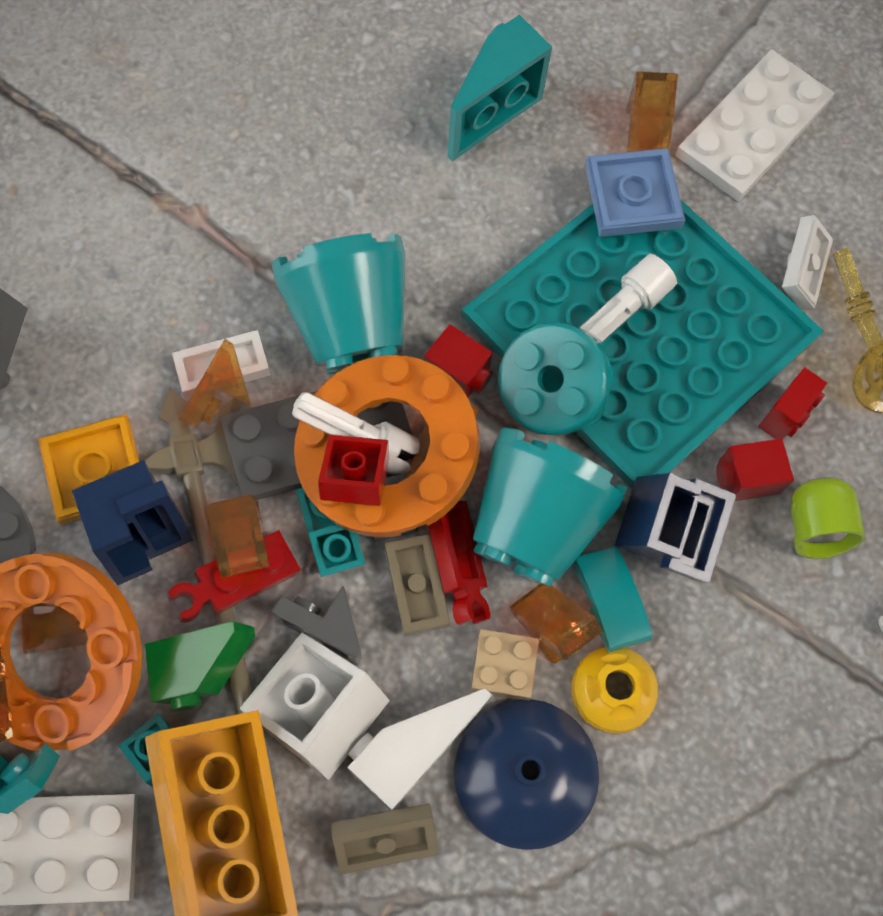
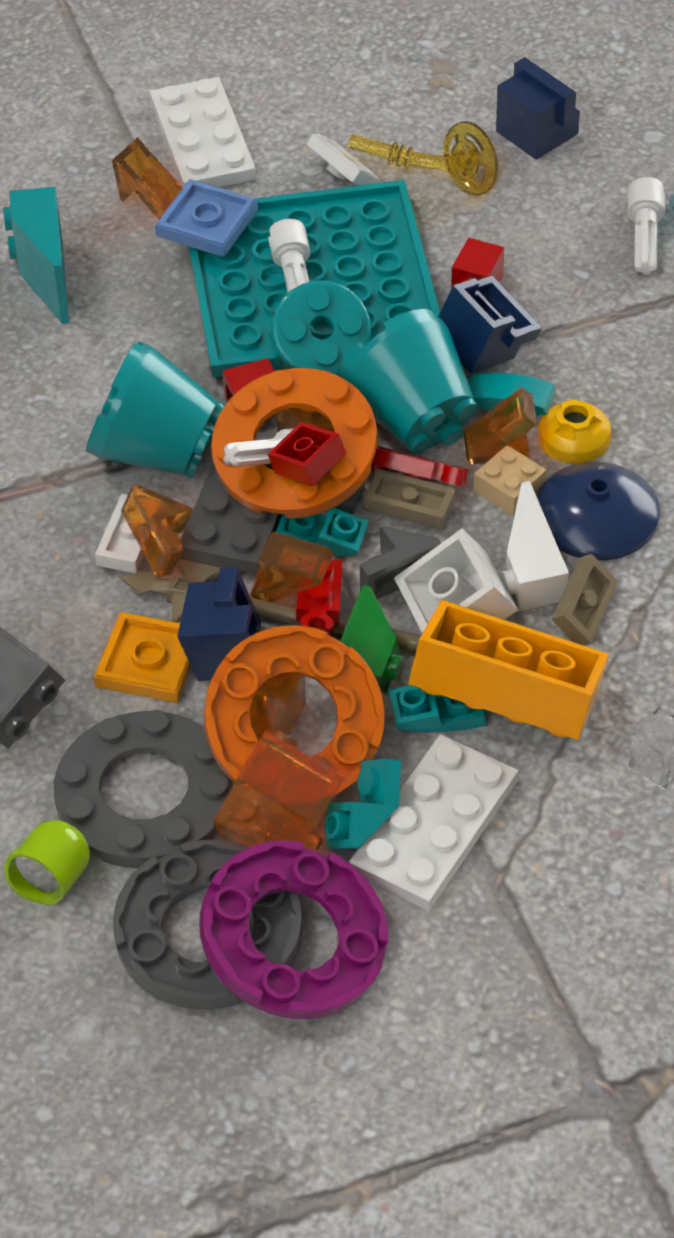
camera: 50 degrees left, 20 degrees down
(794, 405) = (446, 224): red piece -> none
(826, 508) = (535, 246): lime helmet -> none

